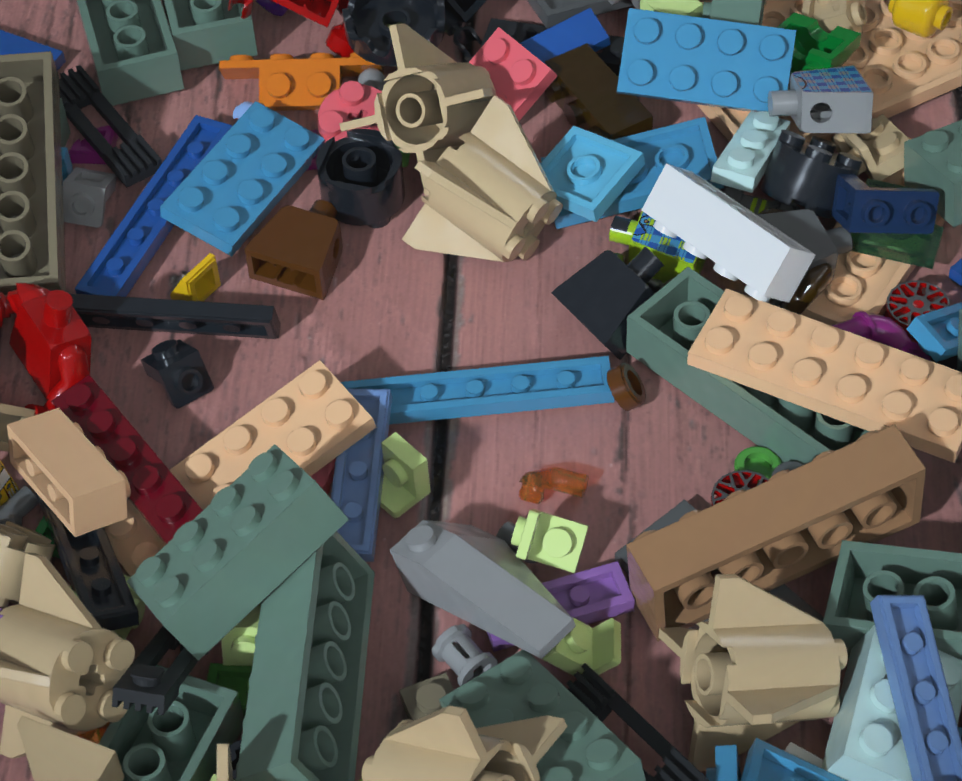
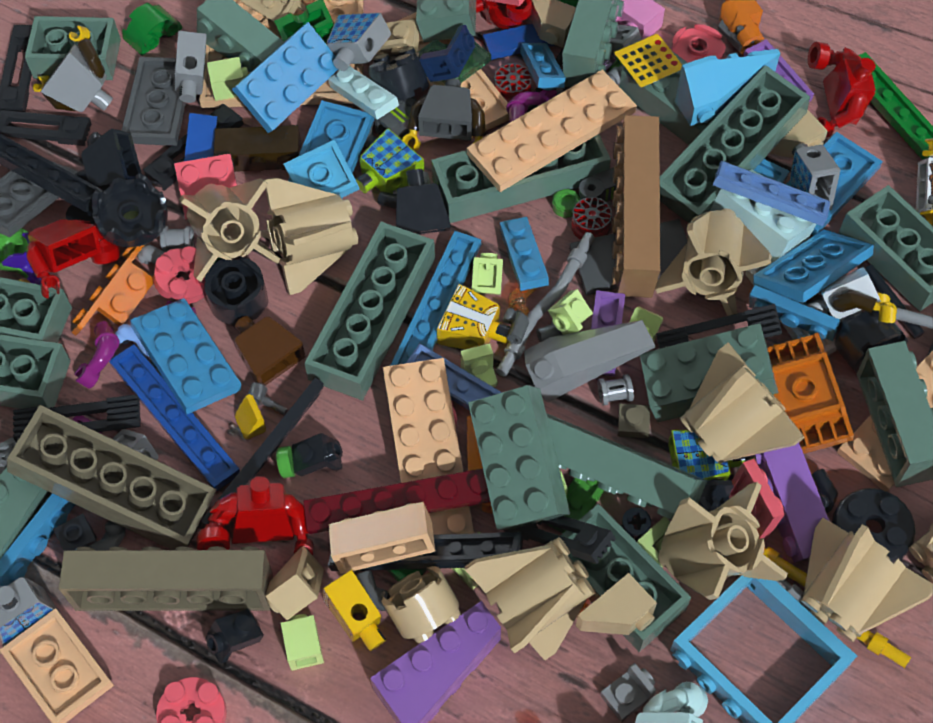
camera: 65 degrees left, 10 degrees up
(144, 338) = (285, 462): none -> bright green tile
(214, 100) = (106, 344): none -> magenta piece
(233, 274) = (259, 393): none -> flat silver hand
(419, 320) = (370, 310): none -> sand green brick
(466, 511) = (575, 260): none -> light grey bar
(472, 439) = (471, 321): none -> yellow torso
(493, 492) = (519, 324): none -> dark grey arm
(563, 424) = (487, 274): none -> yellowish green bracket
(626, 386) = (480, 232): reddish brown tile -> none
(626, 451) = (524, 253): none -> dark azure plate
(728, 234) = (431, 127): white brick -> none

